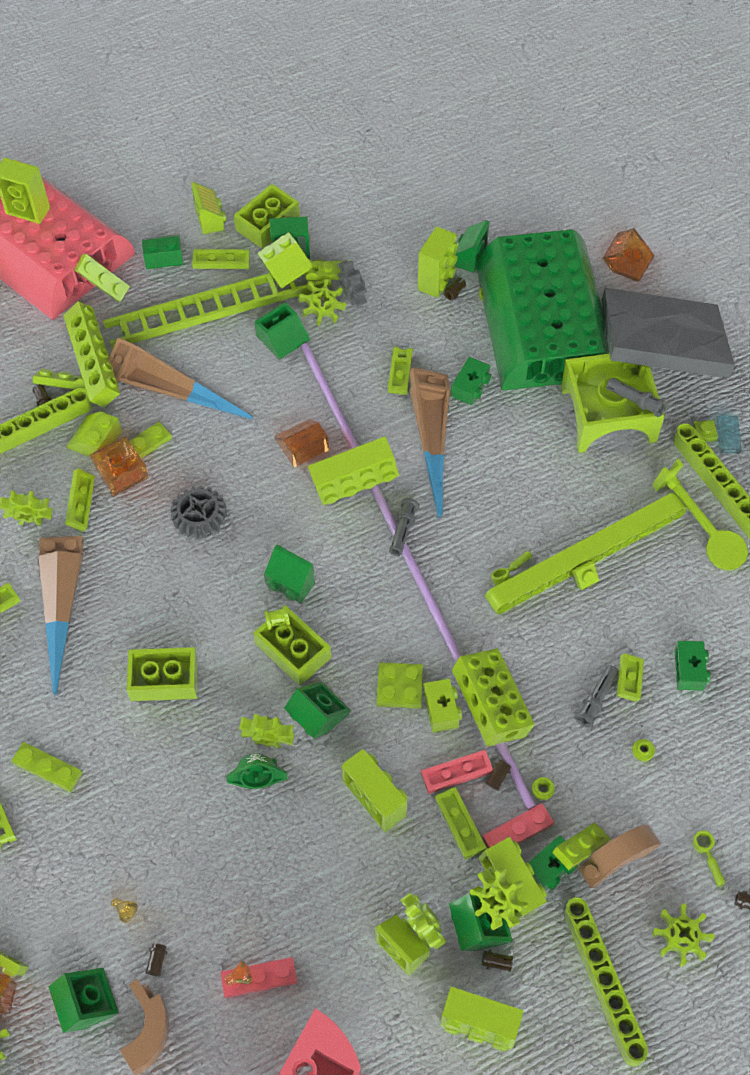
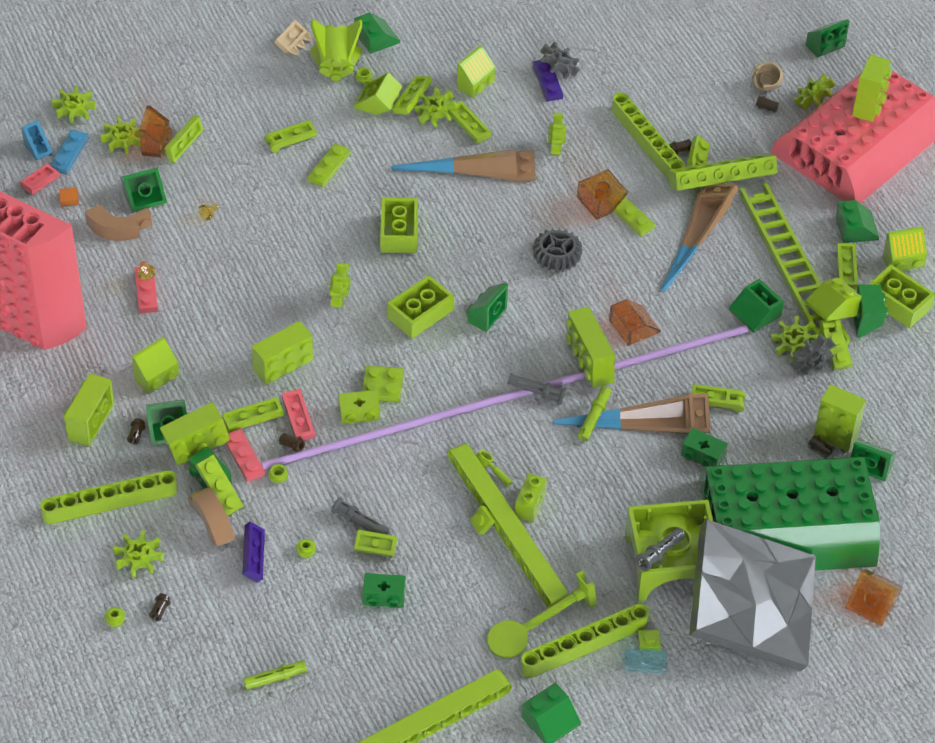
camera: 90 degrees right, 10 degrees down
(80, 500) = (568, 172): lime plate -> none
(95, 433) = (638, 183): lime slope -> none
(101, 277) = (805, 171): lime plate -> none
(156, 959) = (168, 229): dark brown pin -> none
(256, 772) = (310, 284): green hat -> none
(277, 617) = (436, 281): lime bush -> none
(316, 709) = (363, 325): green slope -> none
(423, 920) = (169, 376): lime gear -> none
(434, 472) = (597, 408): none -> lime pin
(492, 697) = (362, 425): lime brick -> none
(499, 898) = (173, 409): lime gear -> none
(551, 530) = (530, 497): none -> lime brick
(660, 804) = (253, 552): none -> dark purple plate
(711, 861) = (200, 586): lime piece -> none

